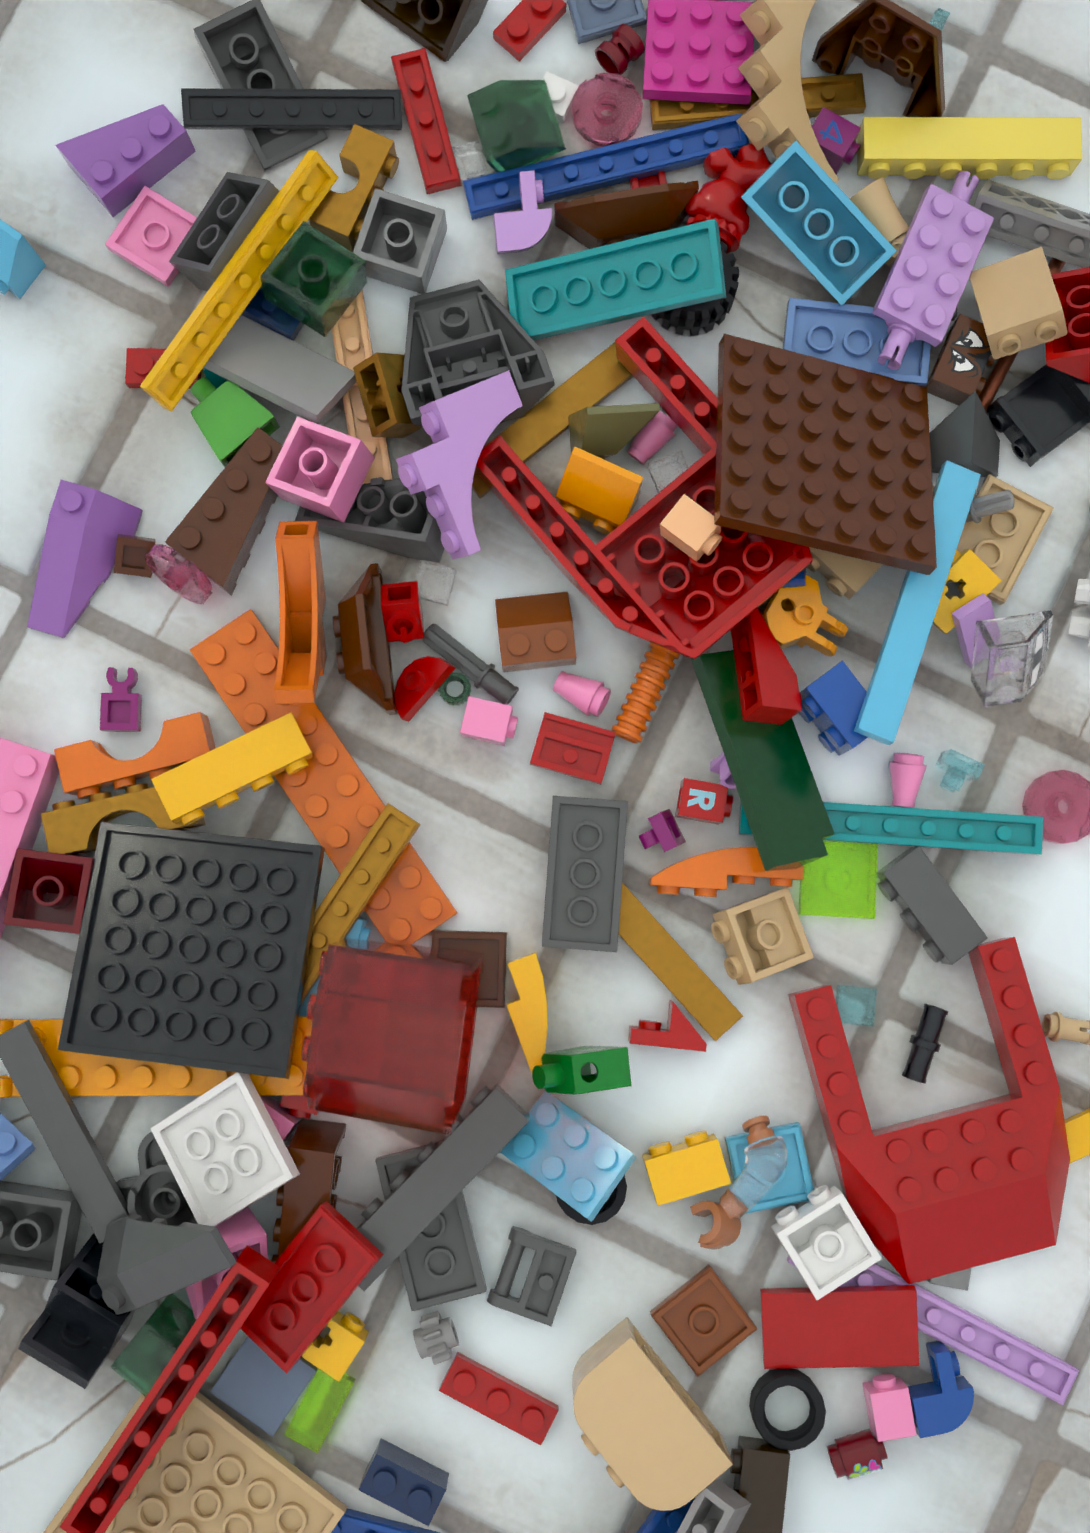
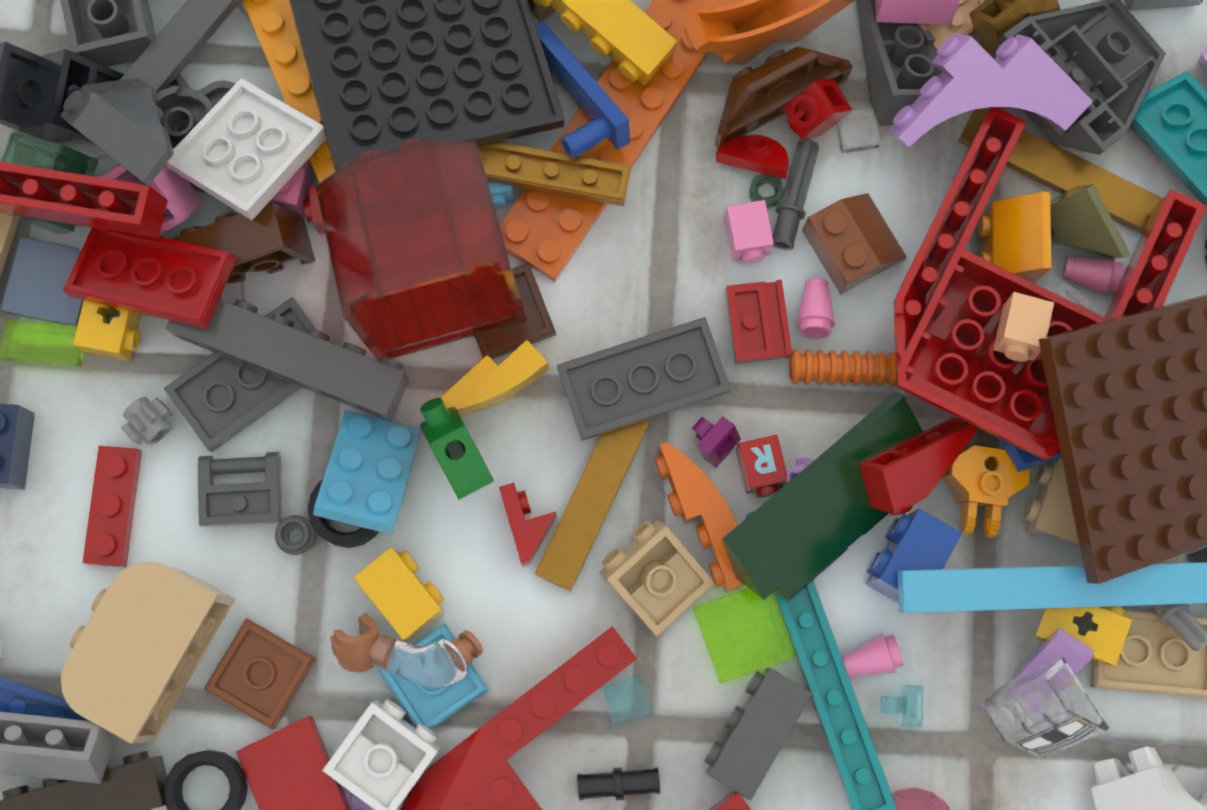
camera: 65 degrees right, 5 degrees down
(337, 806) = (606, 116): none -> blue piece
(593, 1253) = (283, 531): none -> dark grey plate

